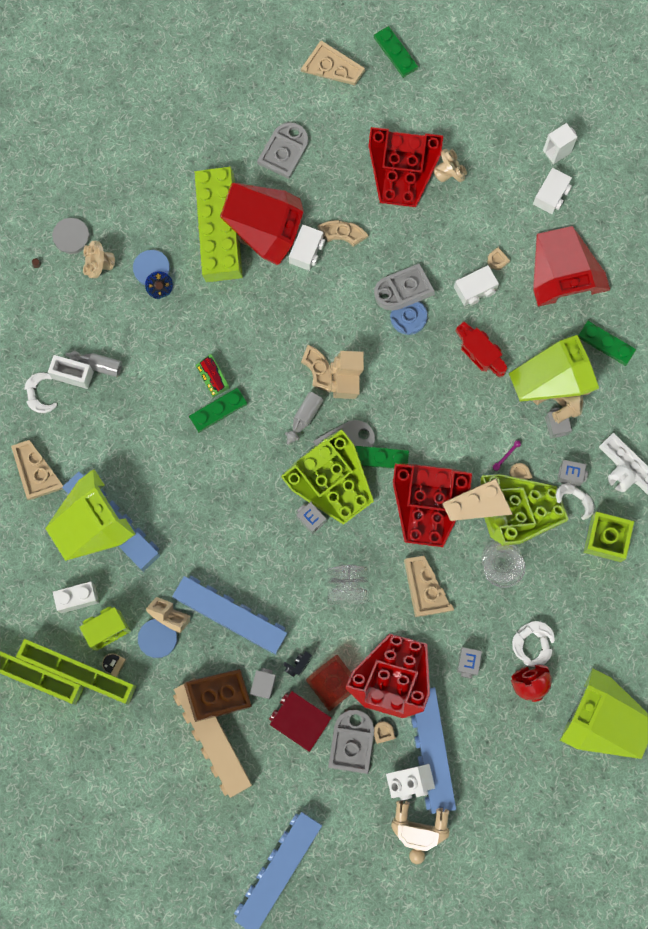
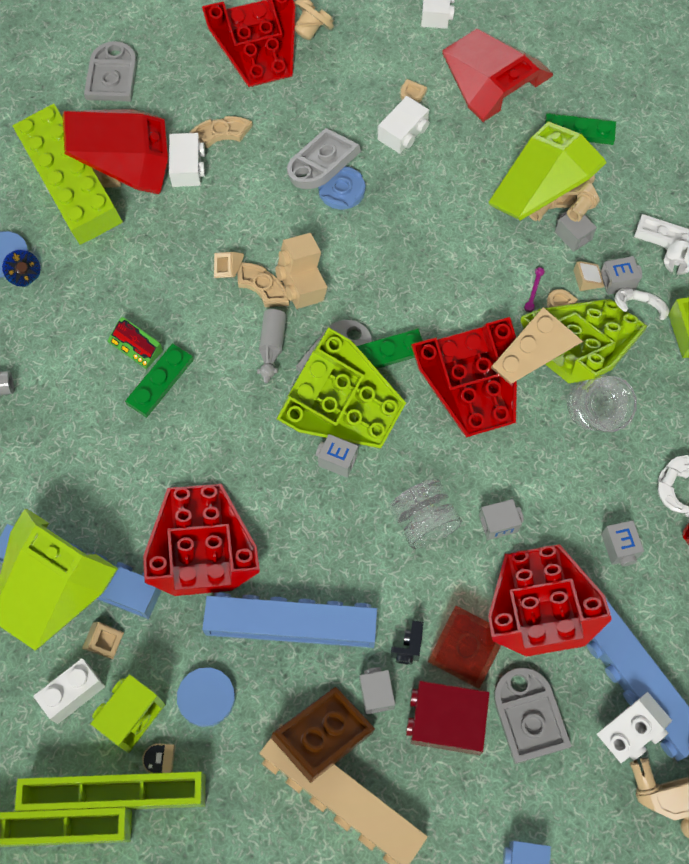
camera: 25 degrees left, 10 degrees down
(109, 573) = (103, 640): none -> tan slope
(165, 614) = (200, 658): tan slope -> none
(194, 537) = (199, 543): none -> red wedge
(300, 343) = (227, 264): none -> tan slope
(383, 732) = (563, 682): tan tile -> none
(397, 610) = (501, 519): none -> light grey brick
(425, 591) = (523, 483): tan wing -> none
(481, 350) = (445, 188): red hinge -> none
(550, 462) = (588, 276): none -> slope

